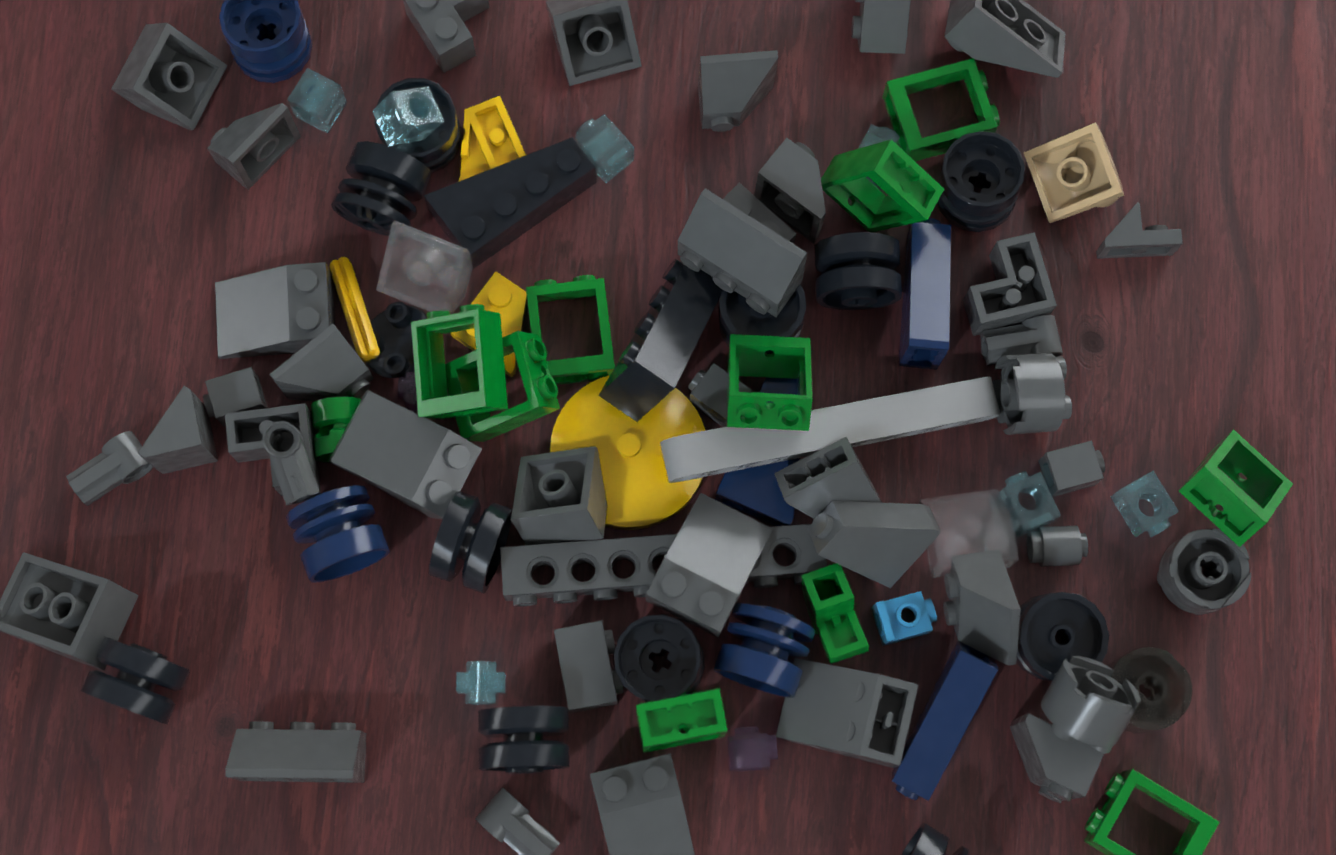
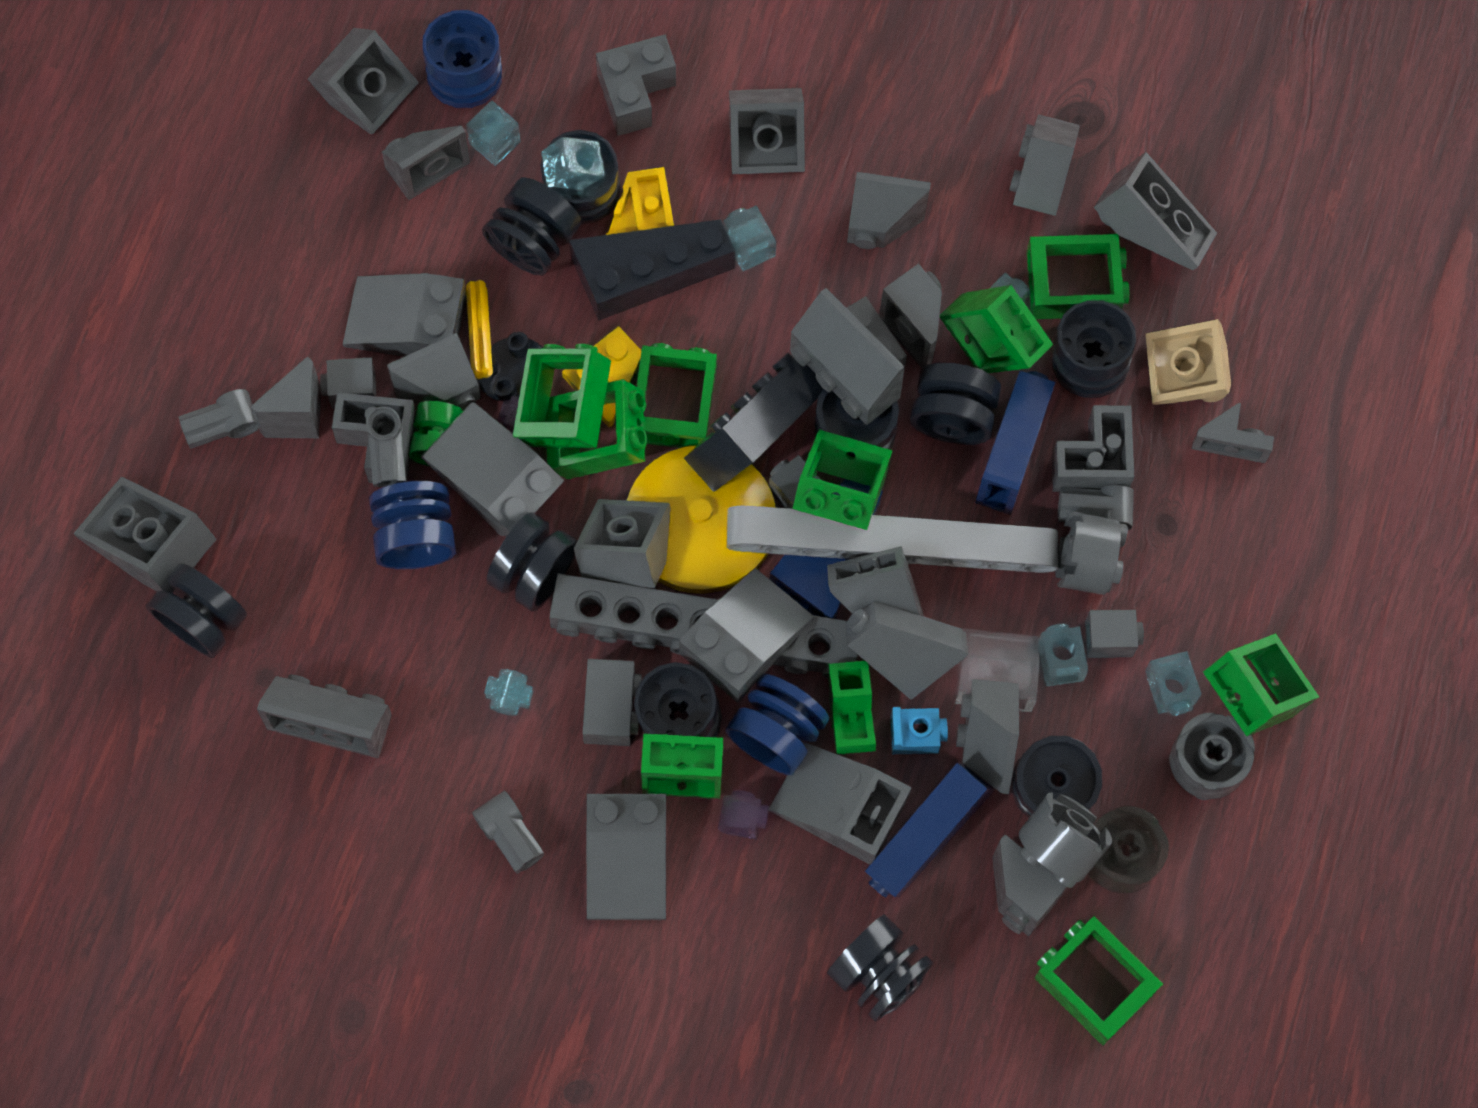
camera: 15 degrees right, 5 degrees down
(424, 269) = (553, 306): clear slope -> none
(524, 736) = (534, 748): black wheel -> none
(1056, 546) = (1079, 700): dark grey brick -> none

